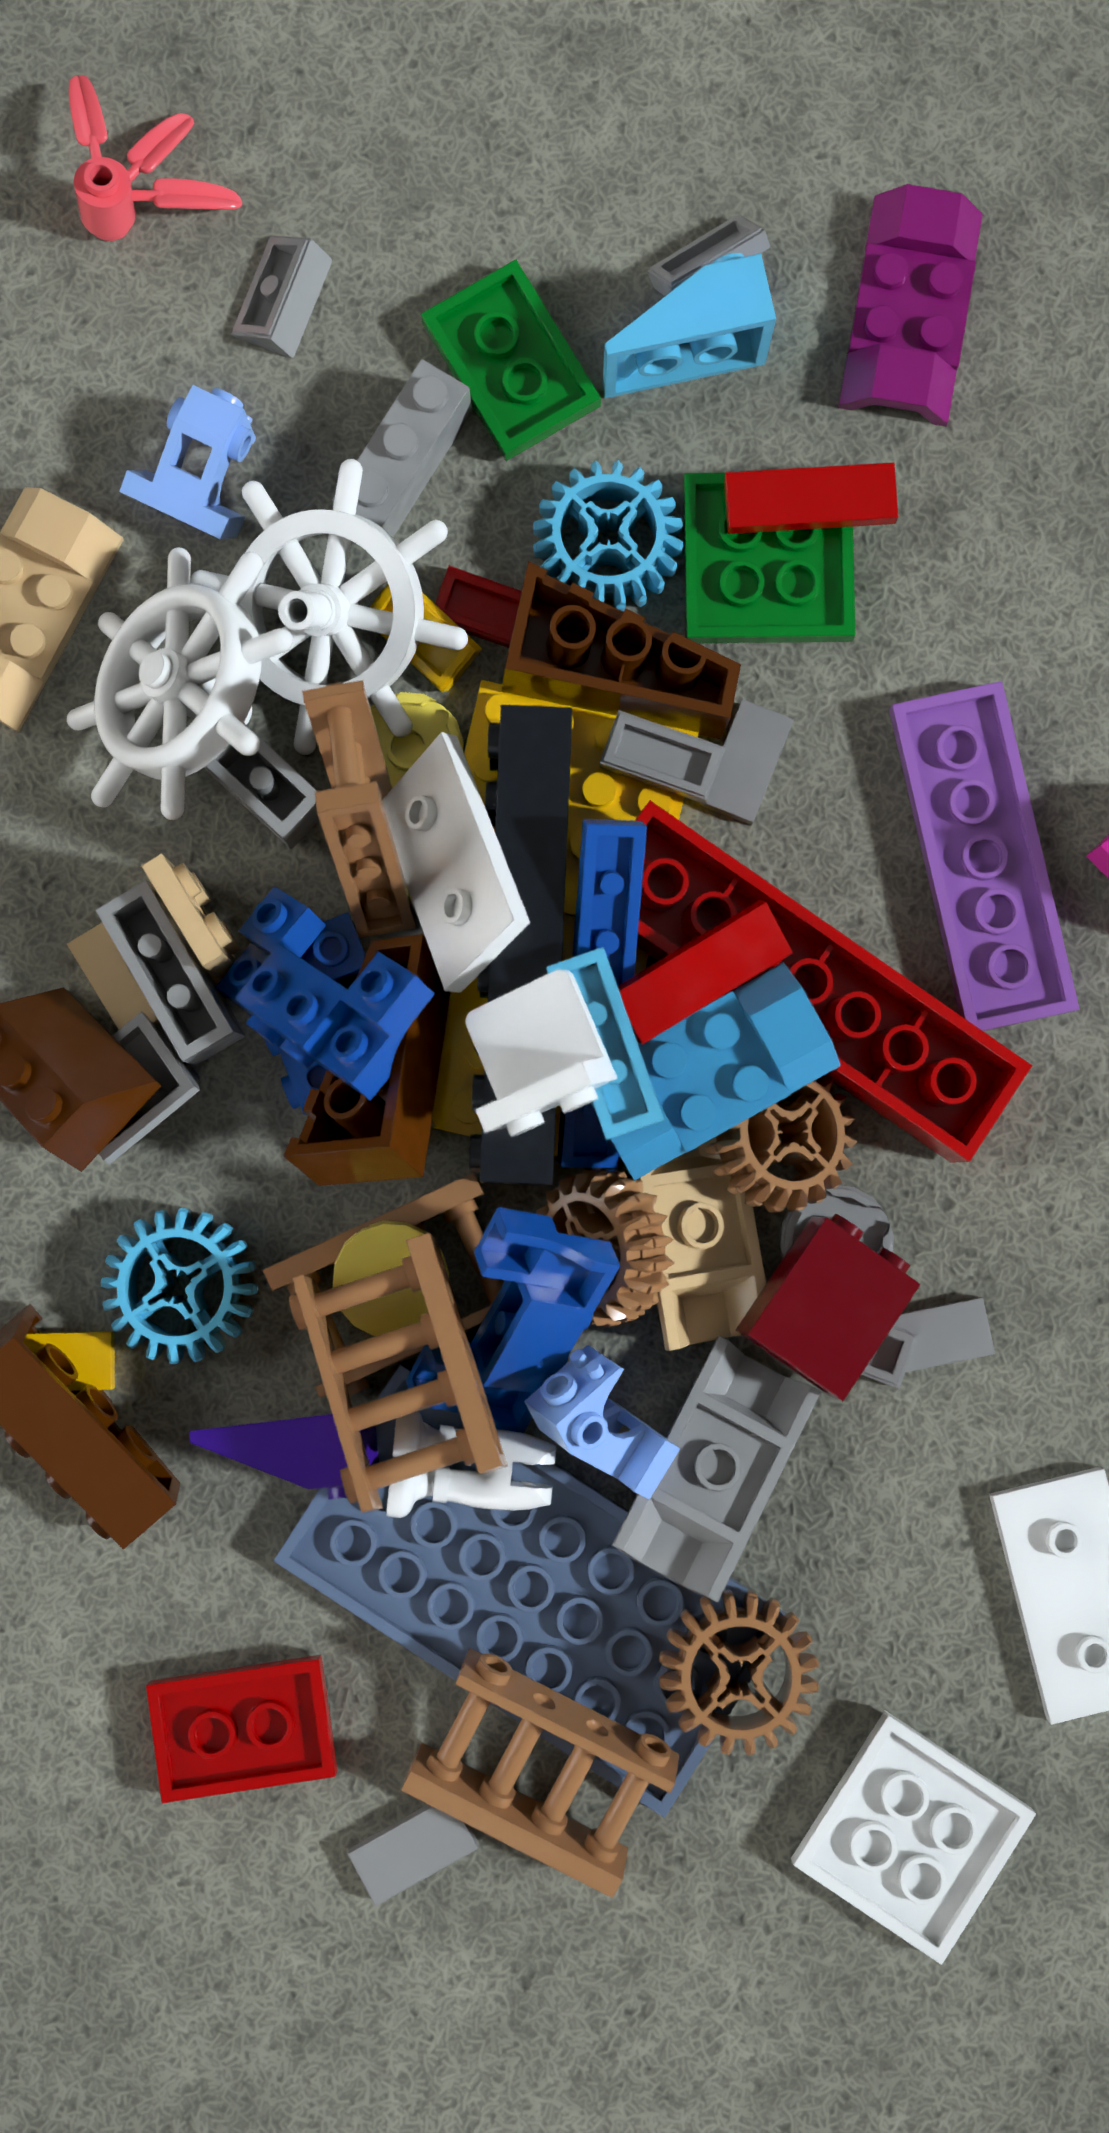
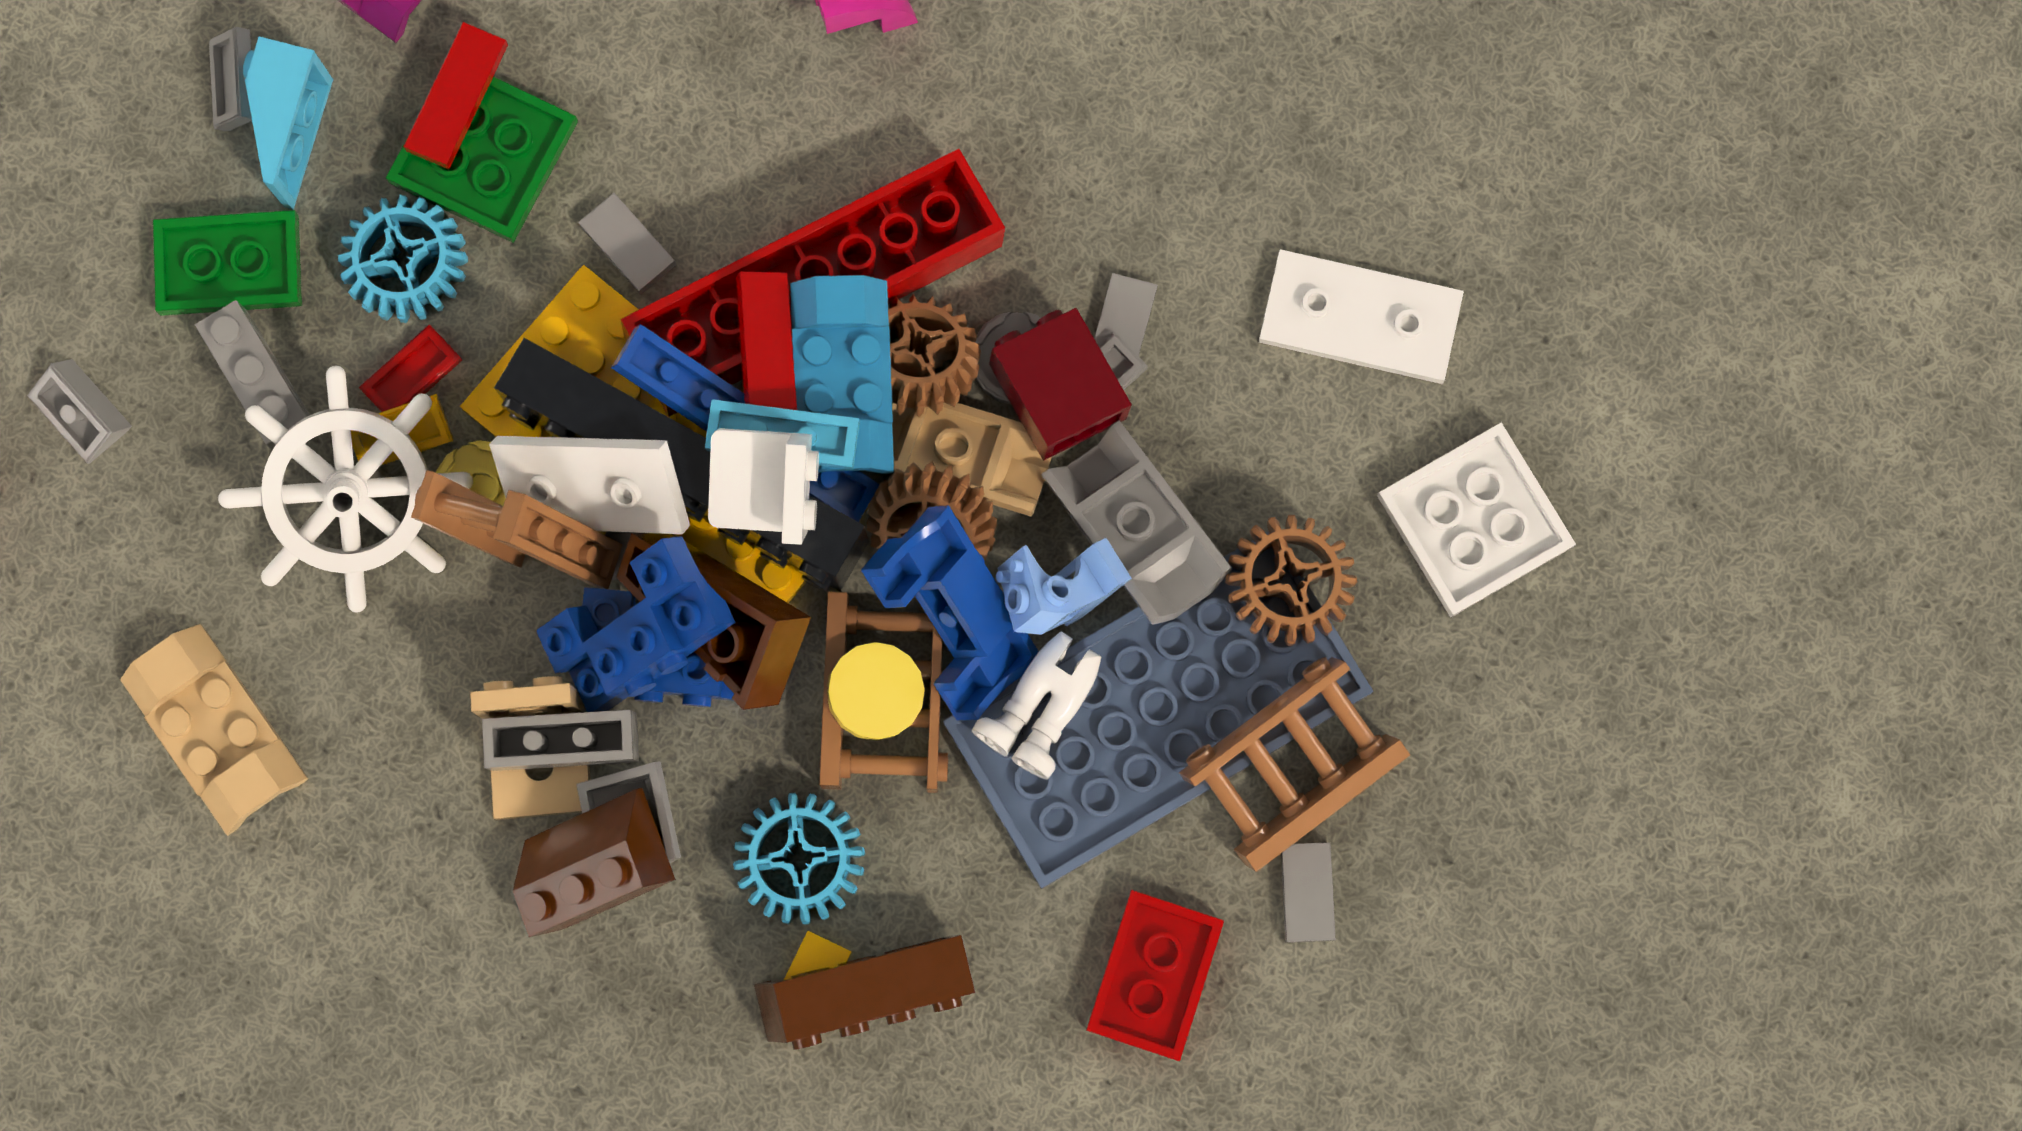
camera: 65 degrees left, 5 degrees down
(178, 681) = (342, 625): white piece -> none
(217, 422) = (154, 502): light blue tile -> none
(268, 790) = (453, 604): light grey brick -> none
(295, 1449) = (971, 815): dark purple slope -> none
(456, 1385) = (975, 670): medium nougat fence -> none
(610, 660) = (500, 300): reddish brown wedge -> none
(661, 757) = (591, 300): light grey tile -> none
(983, 857) = (788, 107): medium lavender plate -> none

